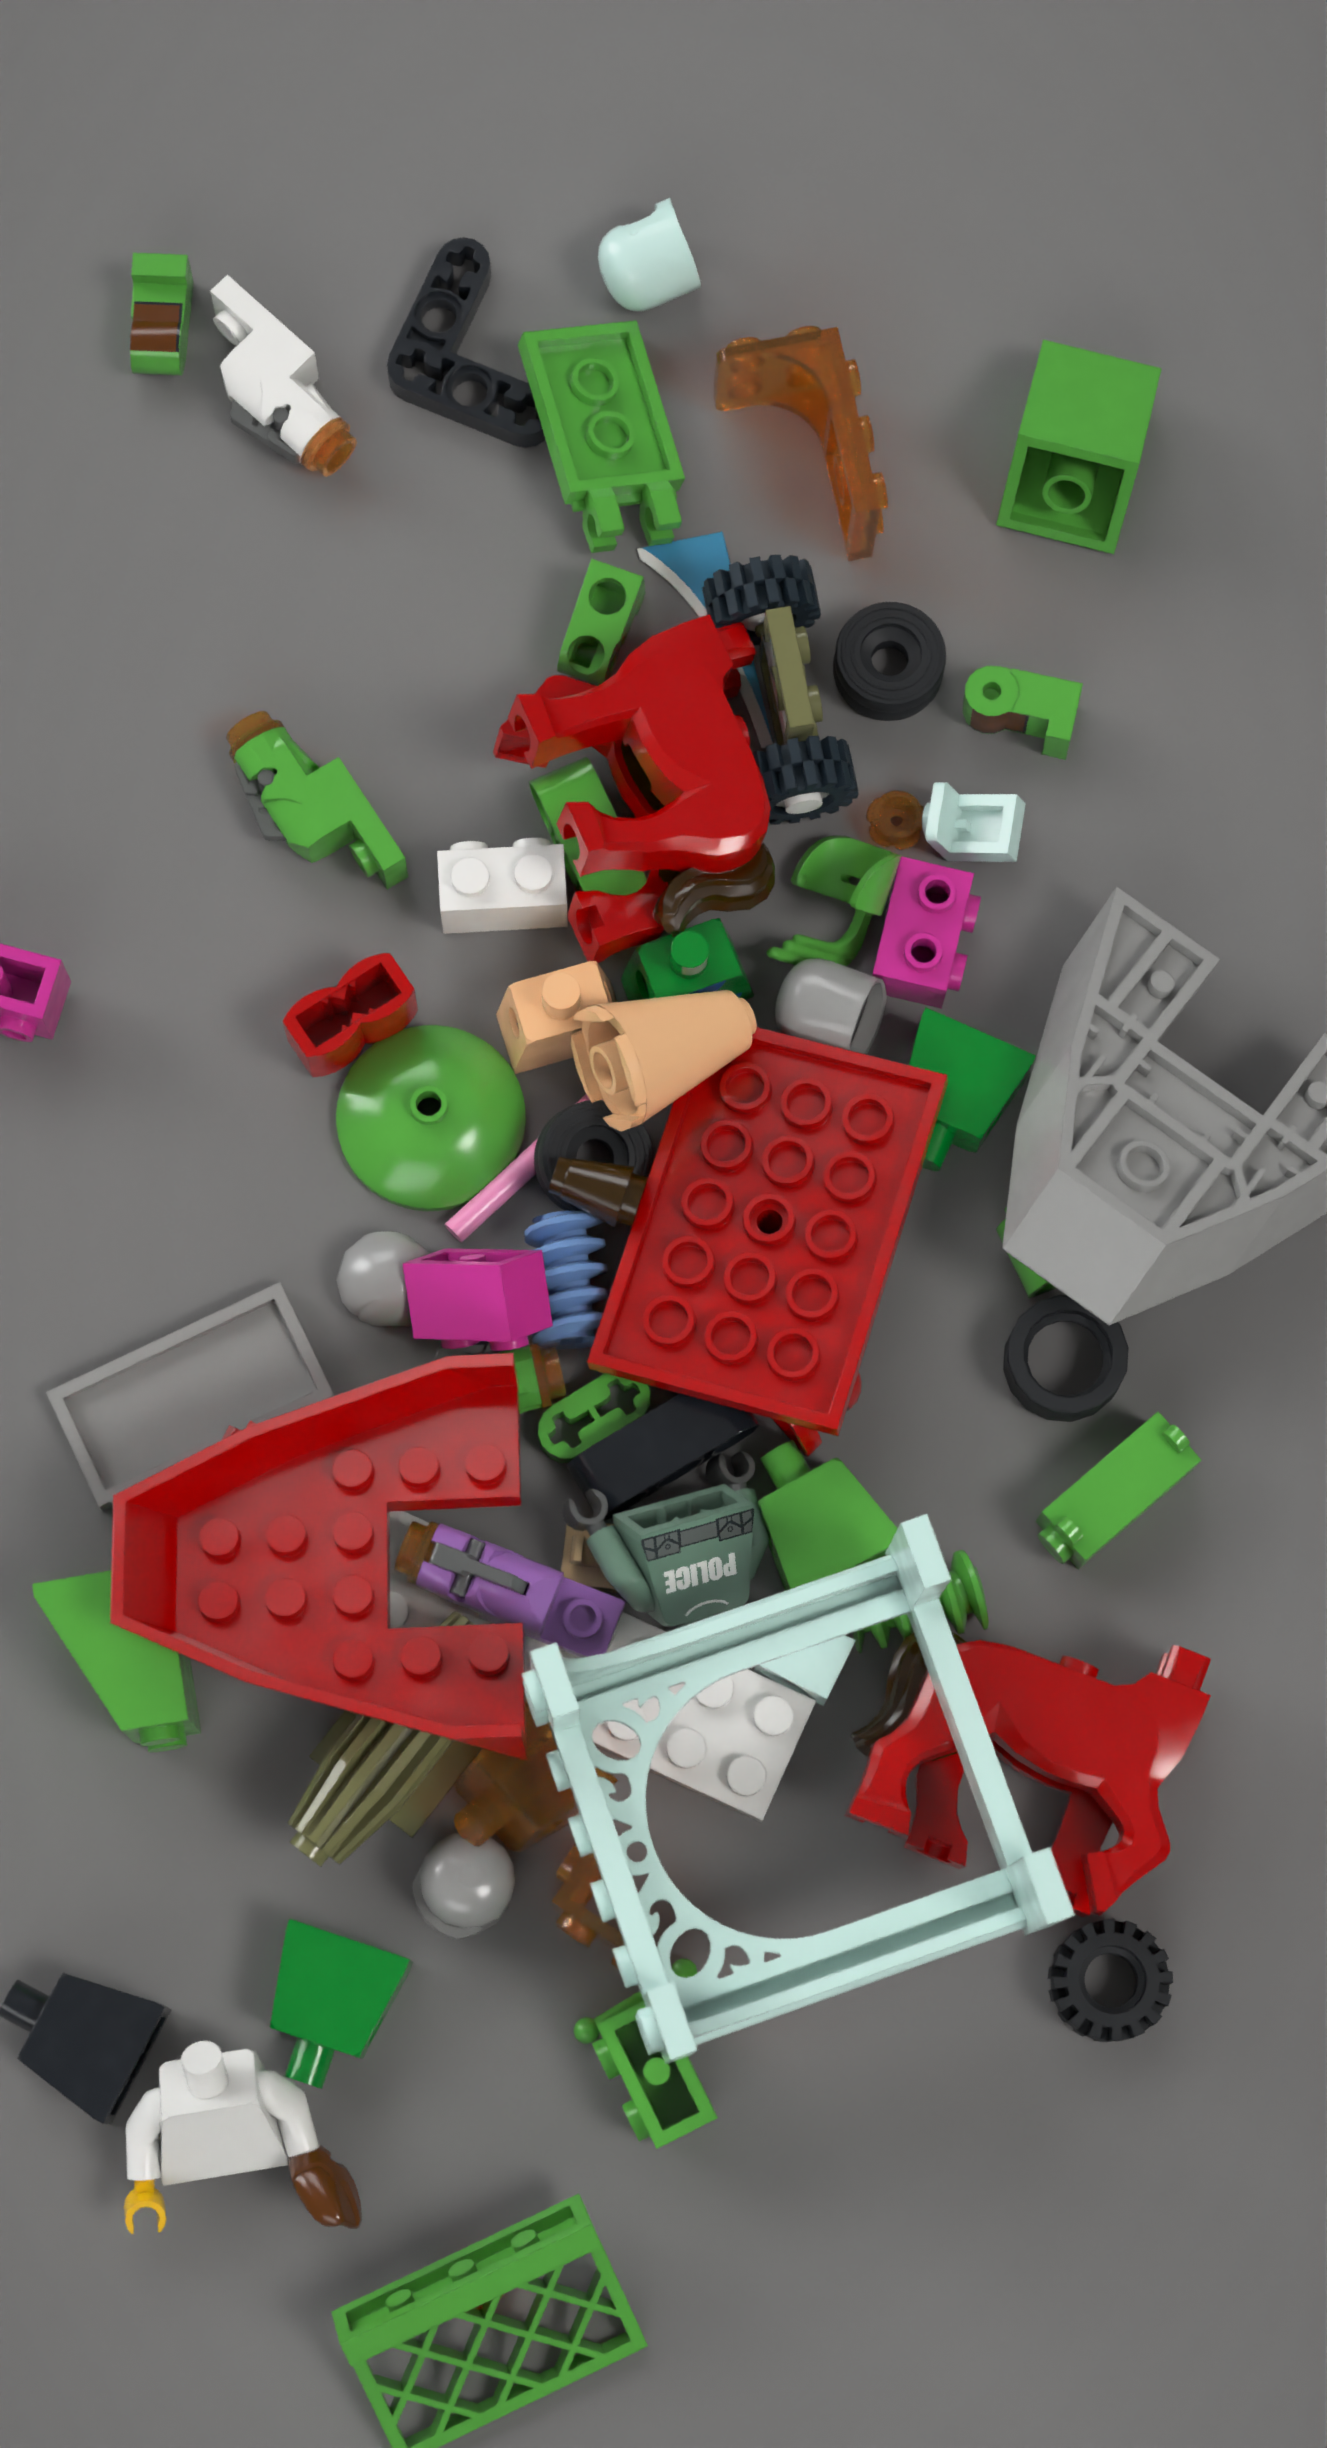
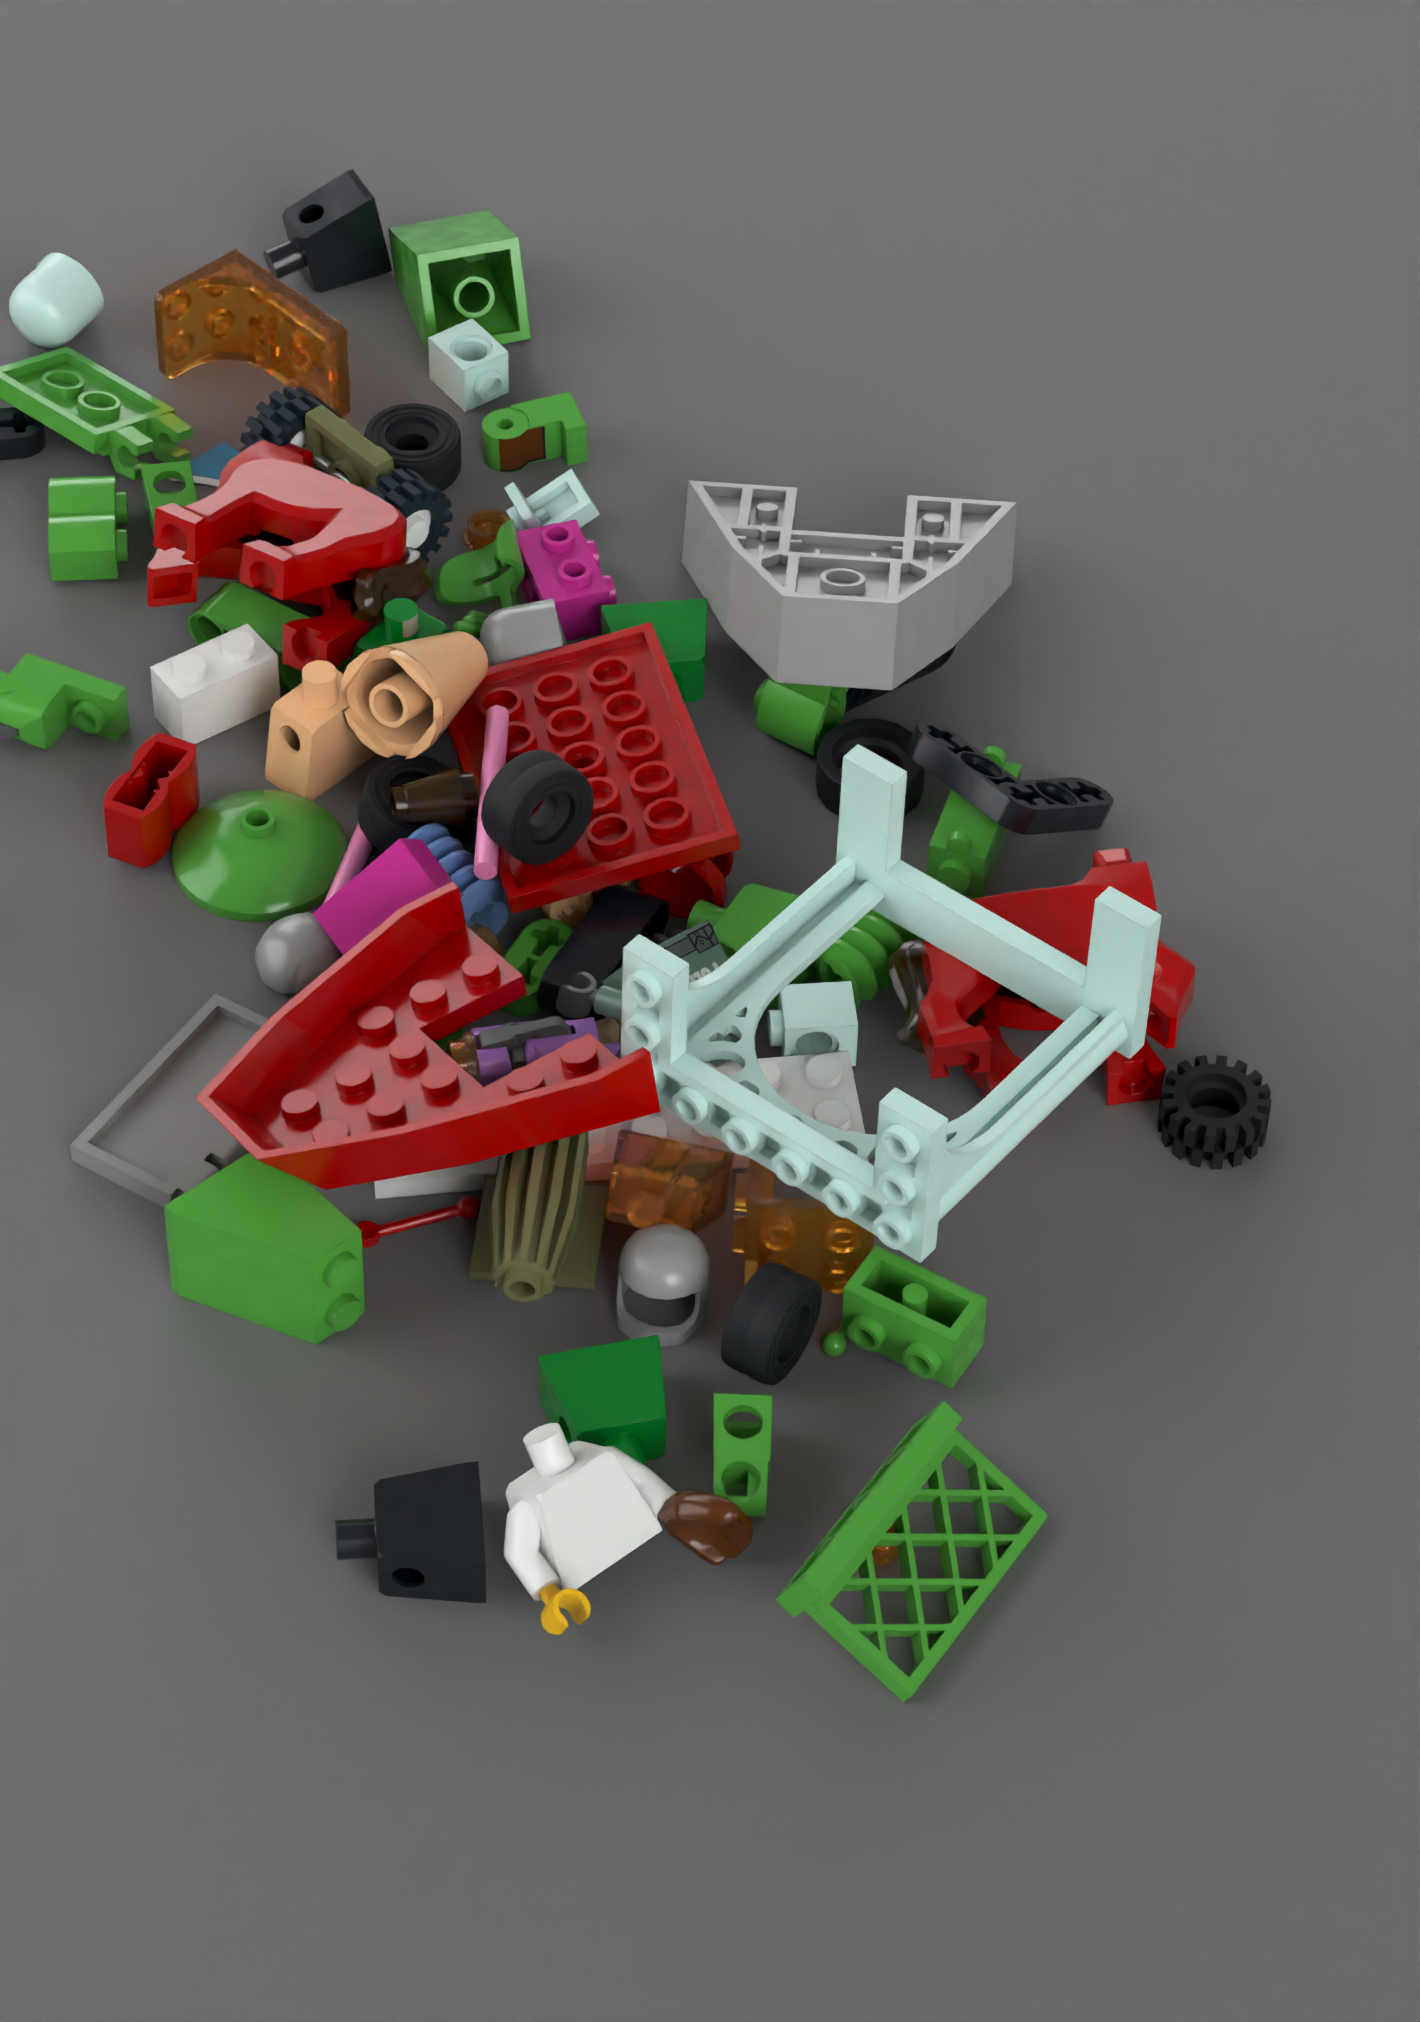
camera: 30 degrees left, 30 degrees down
(412, 2122) = (742, 1451): none -> bright green leg
(505, 595) = (84, 528): none -> bright green brick
(523, 2002) = (771, 1323): none -> black tyre
(654, 1213) = (493, 761): none -> bright pink bar
(657, 1295) = (520, 789): none -> black tyre
(978, 319) = (332, 236): none -> black torso
(1018, 550) = (468, 365): none -> light aqua brick
(1151, 1500) = (1017, 805): none -> black beam

